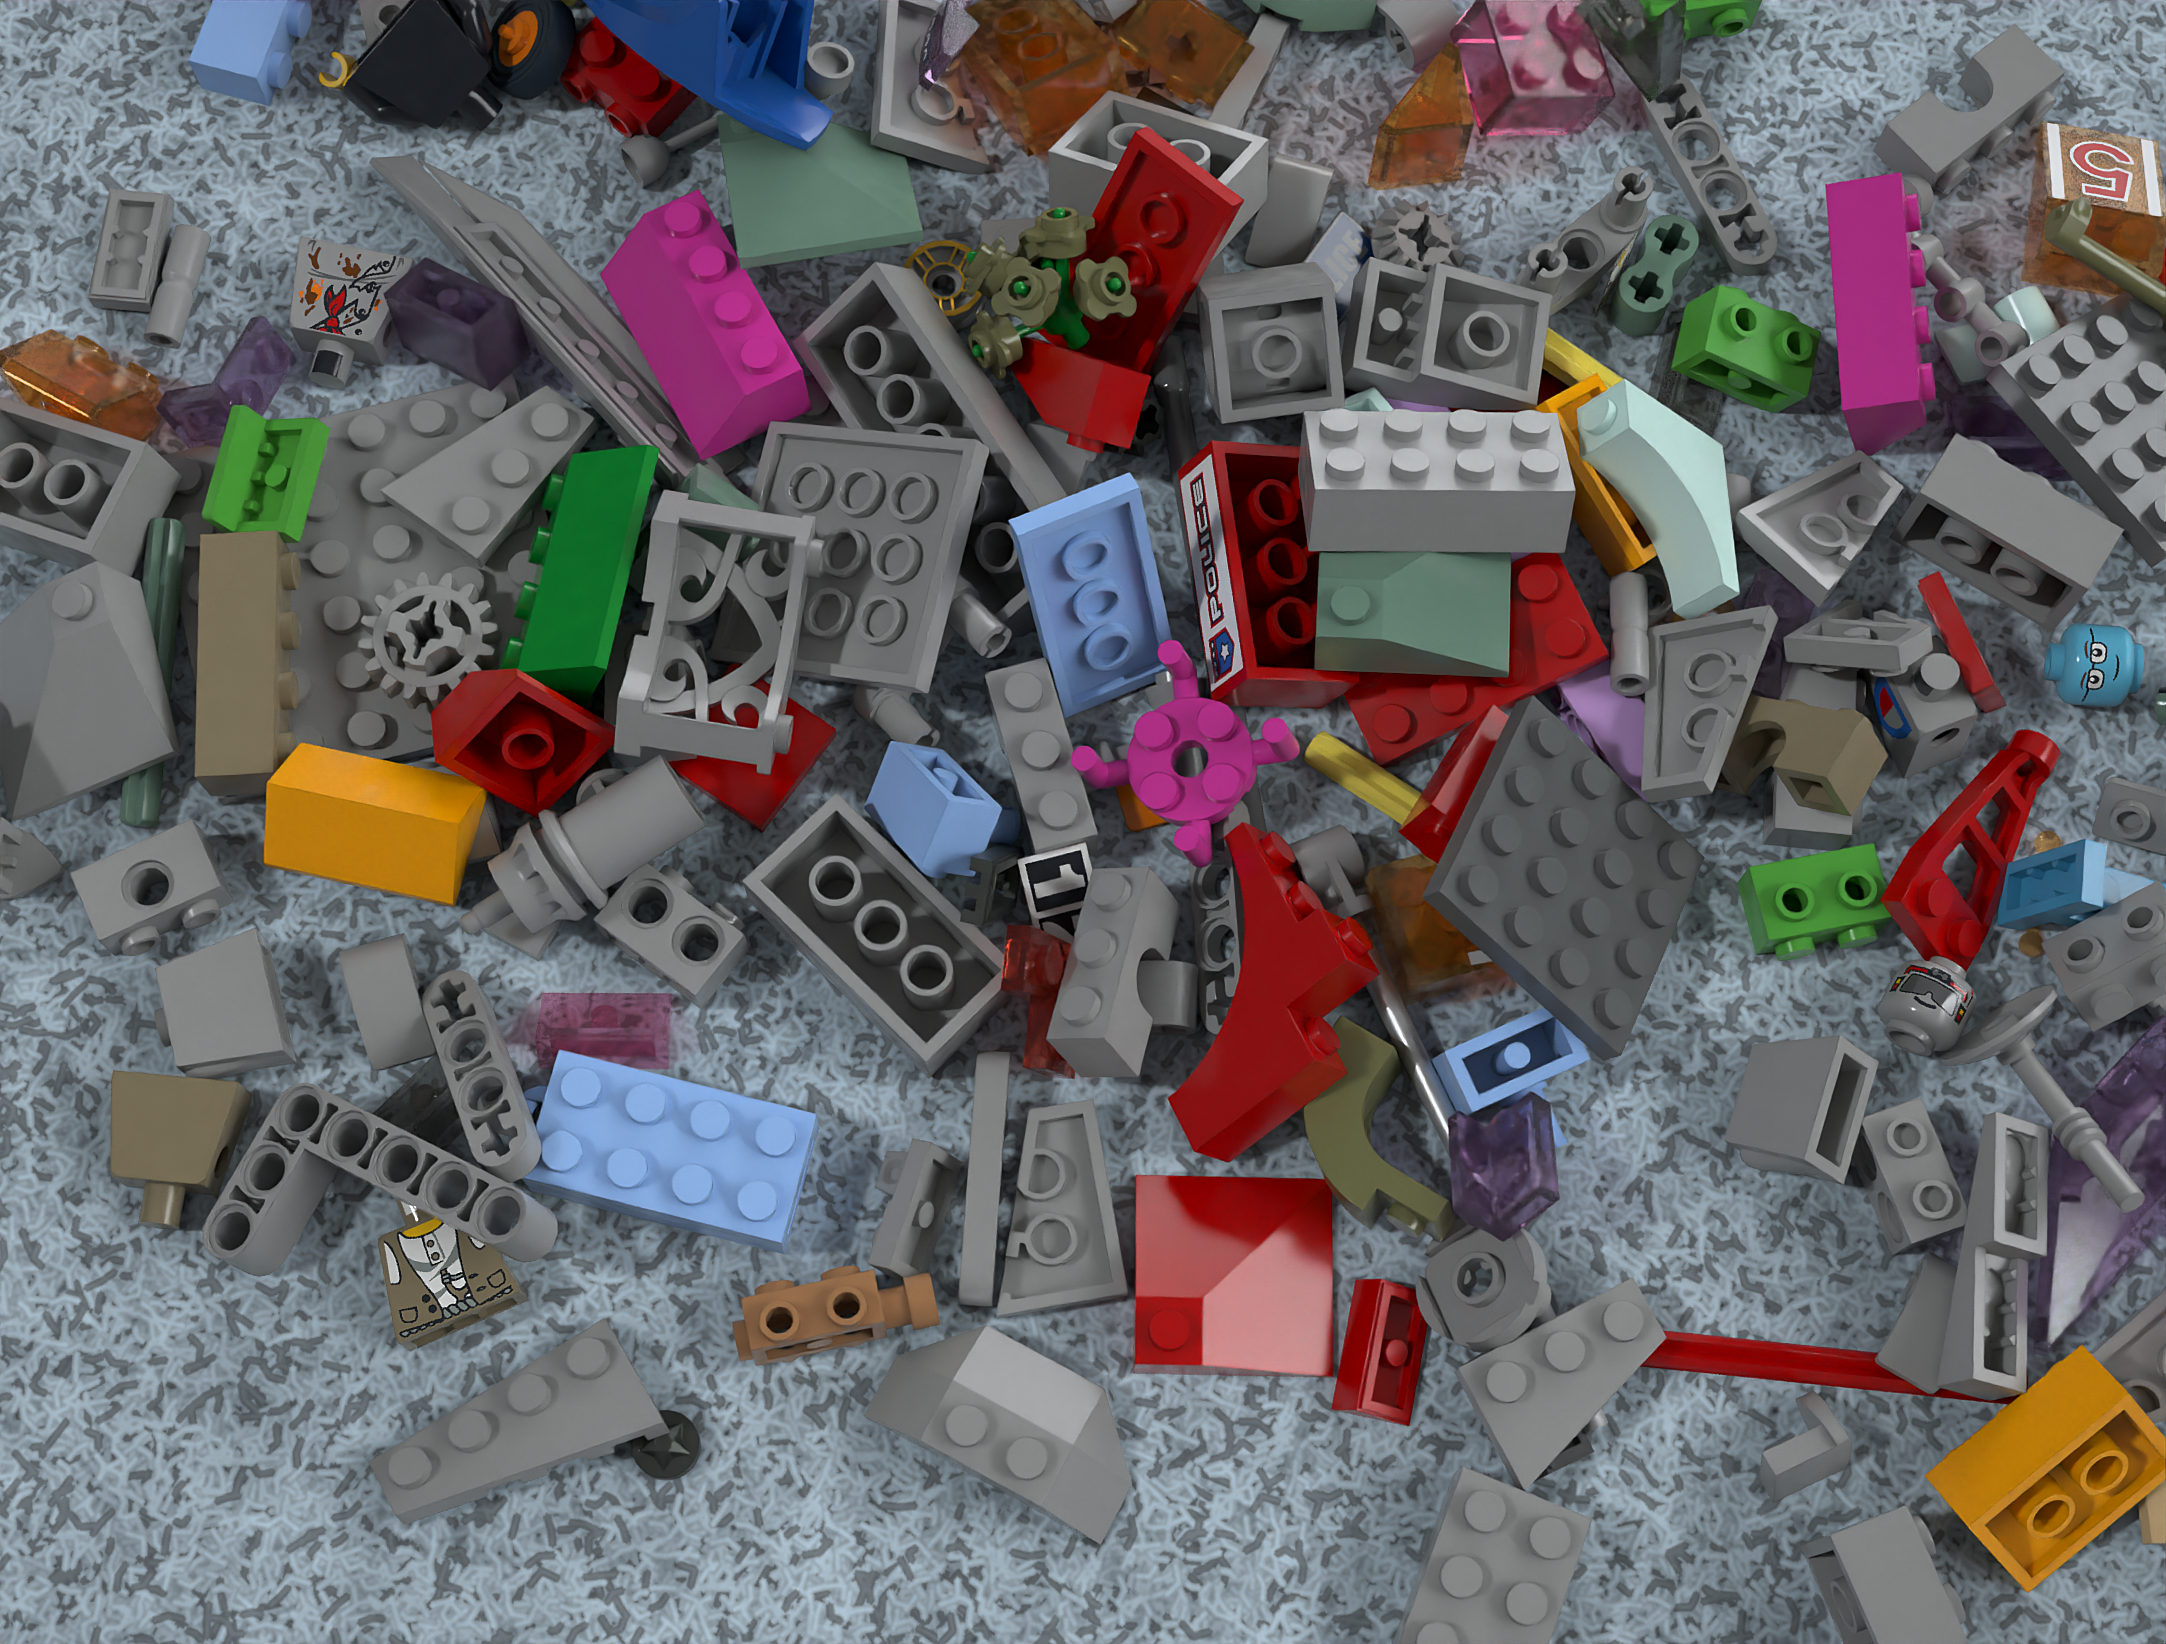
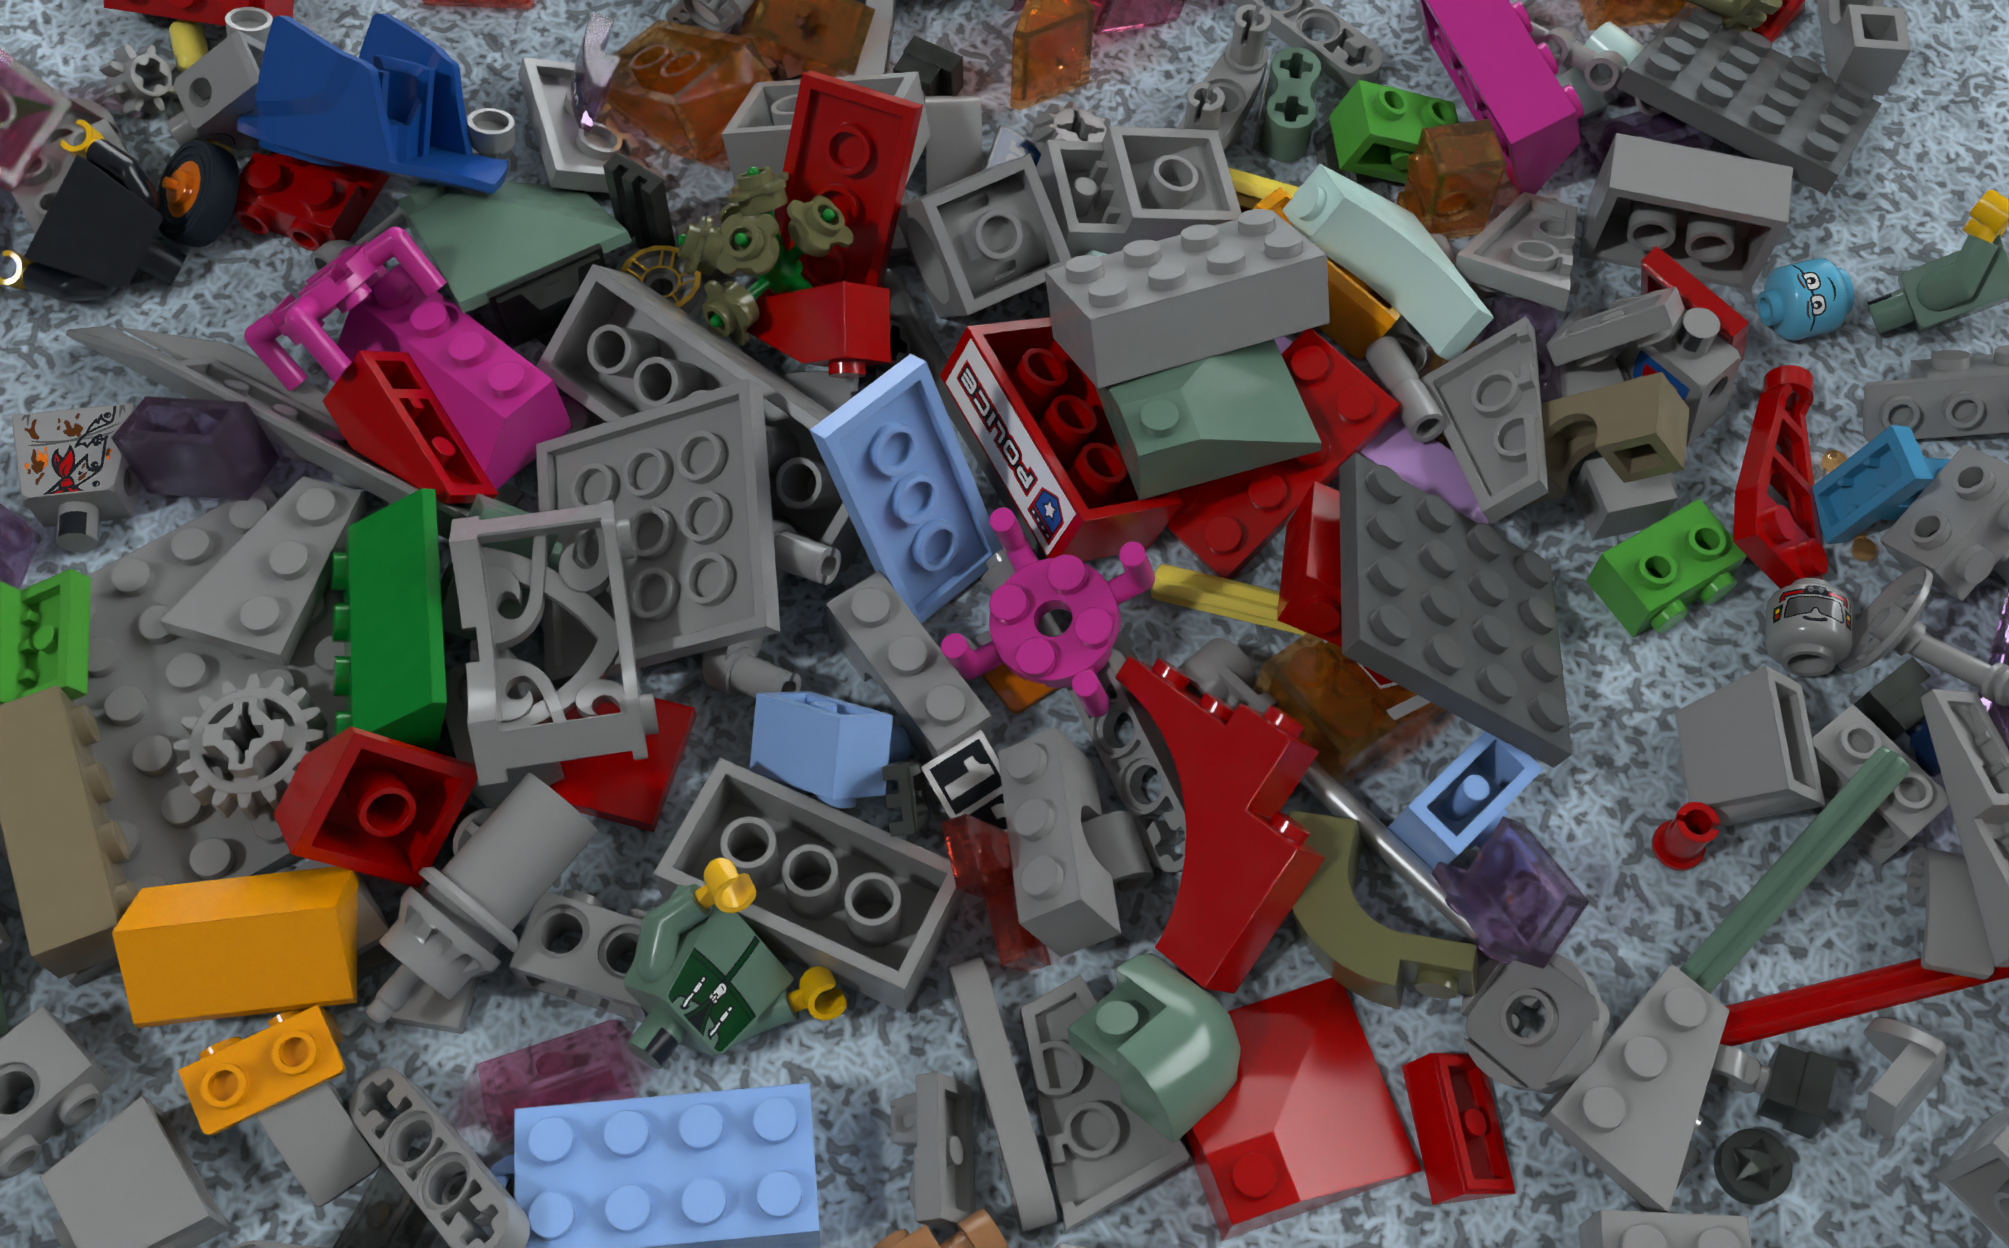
camera: 20 degrees left, 10 degrees down
(361, 940) = (263, 1070): none -> light orange bracket
(626, 206) = (340, 286): none -> dark pink plate
(652, 370) = (400, 424): none -> red slope
(765, 992) = (711, 976): none -> torso
(826, 272) = (539, 300): none -> pearl dark grey piece
(951, 204) = (637, 208): none -> pearl dark grey tile
(1138, 1186) = (1162, 1044): none -> sand green brick
(1292, 124) = (937, 67): none -> pearl dark grey piece
(1633, 1480) = (1752, 1166): none -> pearl dark grey tile
(1696, 1425) = (1792, 1087): none -> pearl dark grey piece
(1699, 1178) = (1683, 841): none -> red pin
(1775, 423) = (1454, 178): none -> clear orange brick
(1786, 1234) = (1796, 868): none -> sand green axle
(1966, 1105) = (1897, 708): none -> pearl dark grey piece

